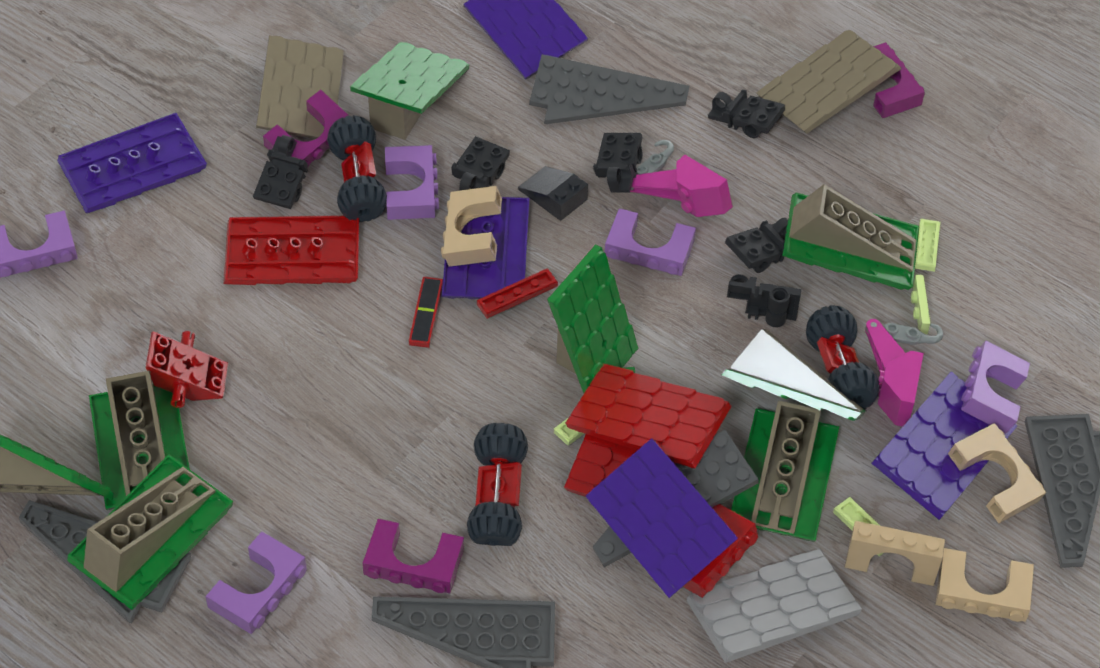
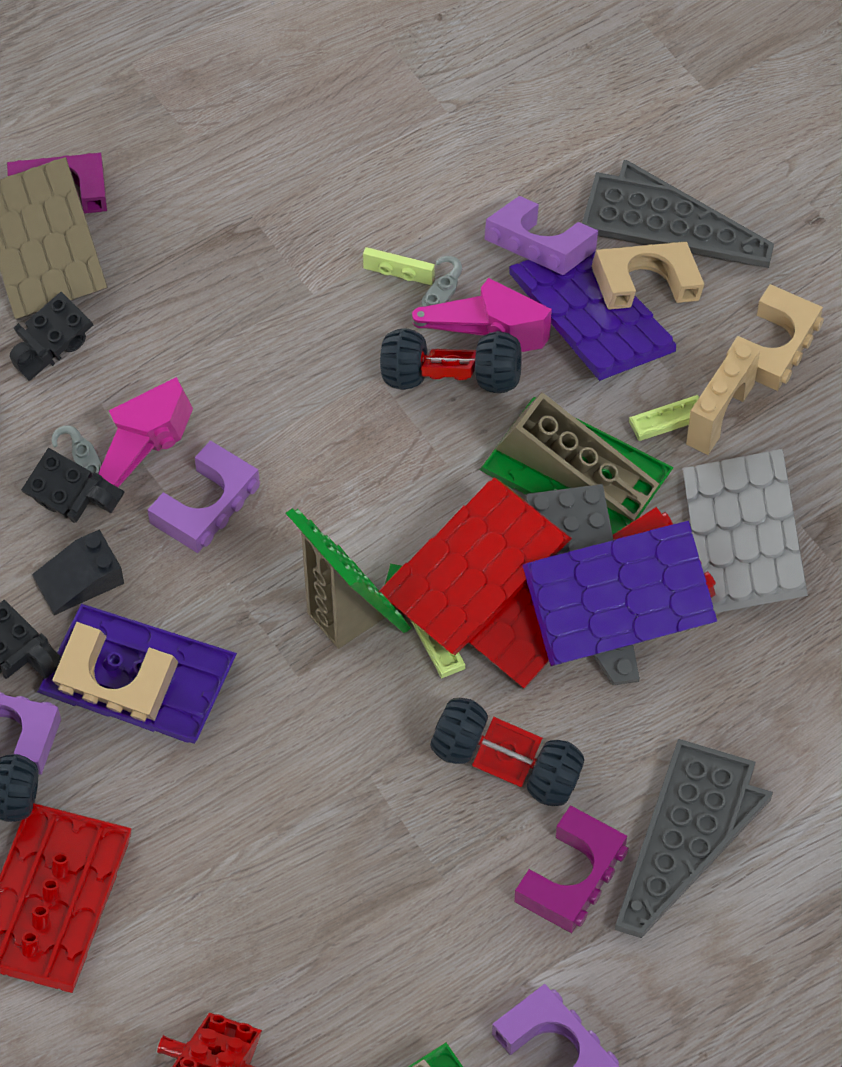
camera: 70 degrees left, 5 degrees up
(426, 312) = (212, 766): black tile -> none
(517, 293) = (229, 656): red tile -> none
(760, 245) = (255, 385): black plate -> none
(767, 300) = (349, 403): black plate -> none
(779, 370) = (470, 420): piece -> none
(848, 239) = (287, 298): dark tan piece -> none
(927, 245) = (315, 231): yellowish green plate -> none

